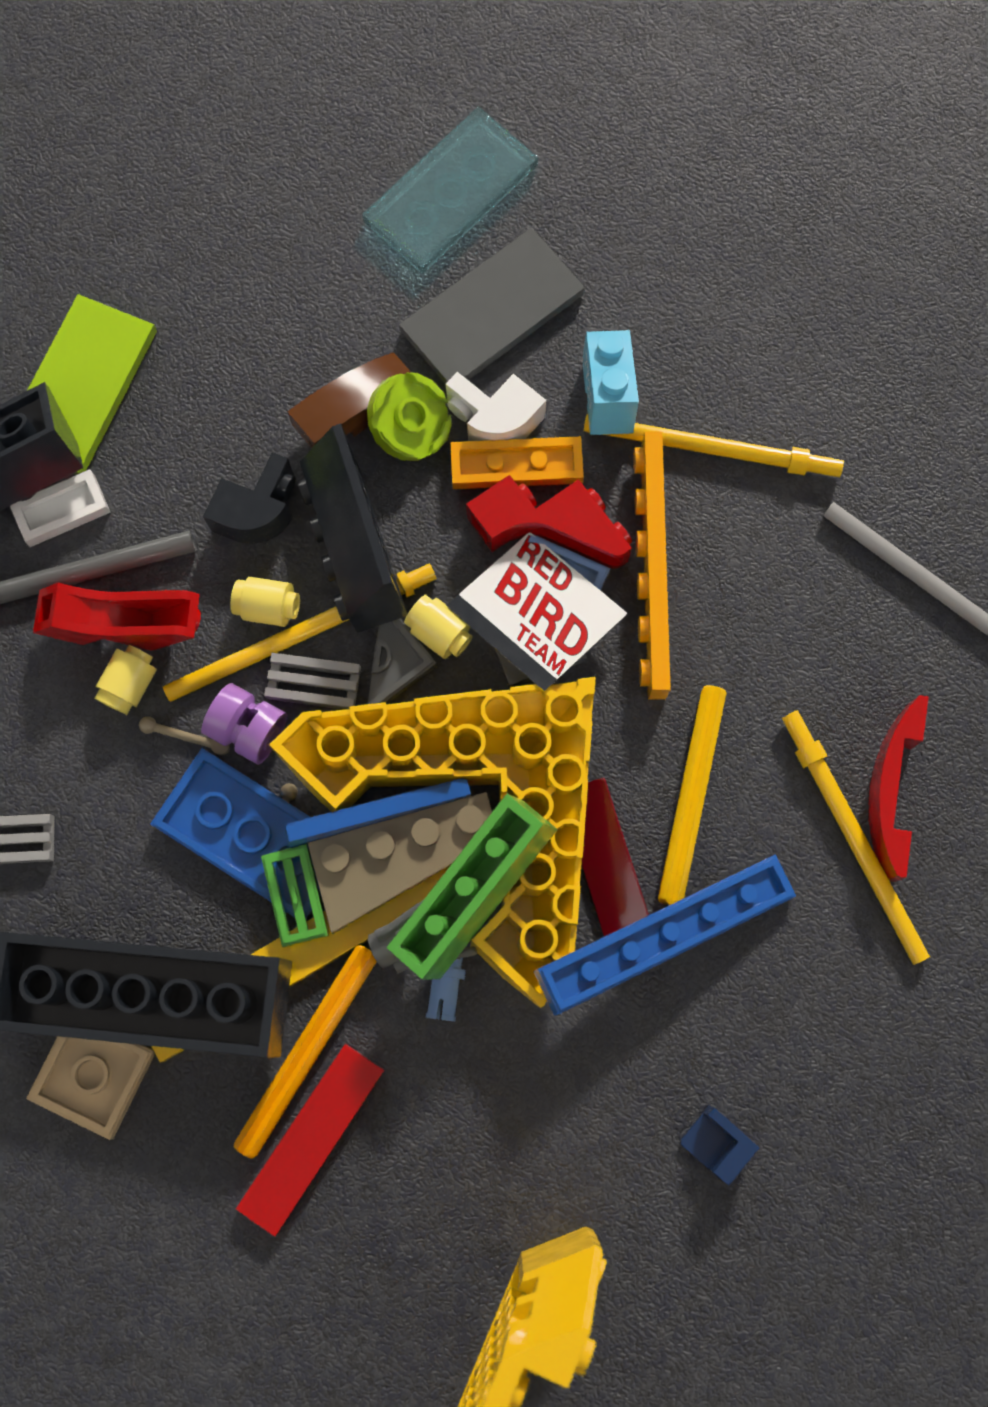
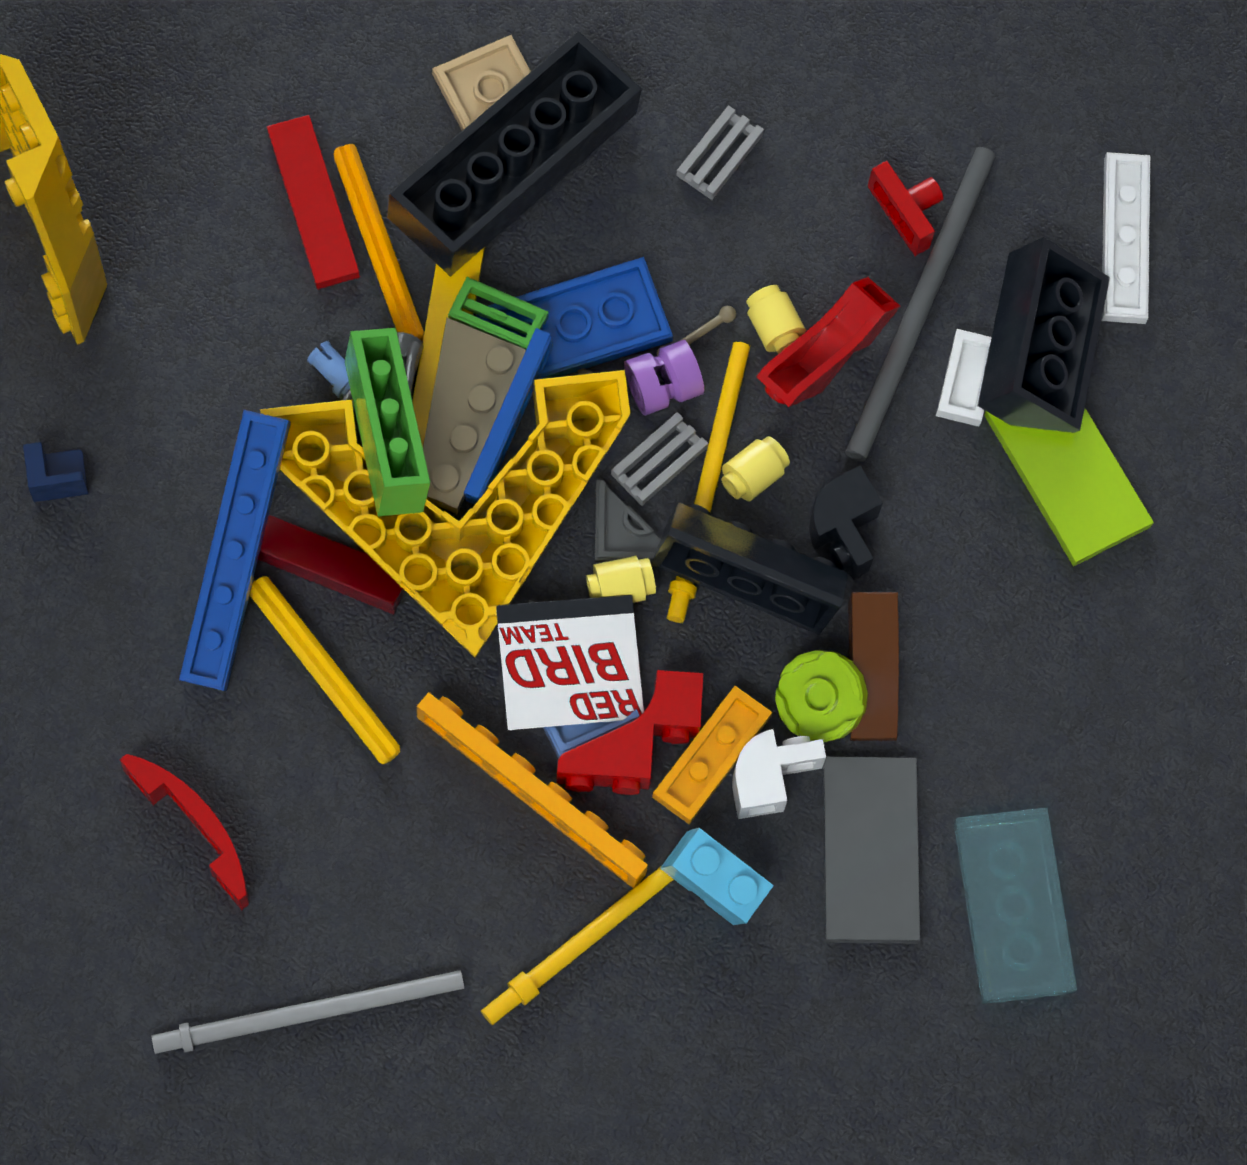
camera: 120 degrees right, 5 degrees down
(812, 755) = (273, 785): yellow bar -> none

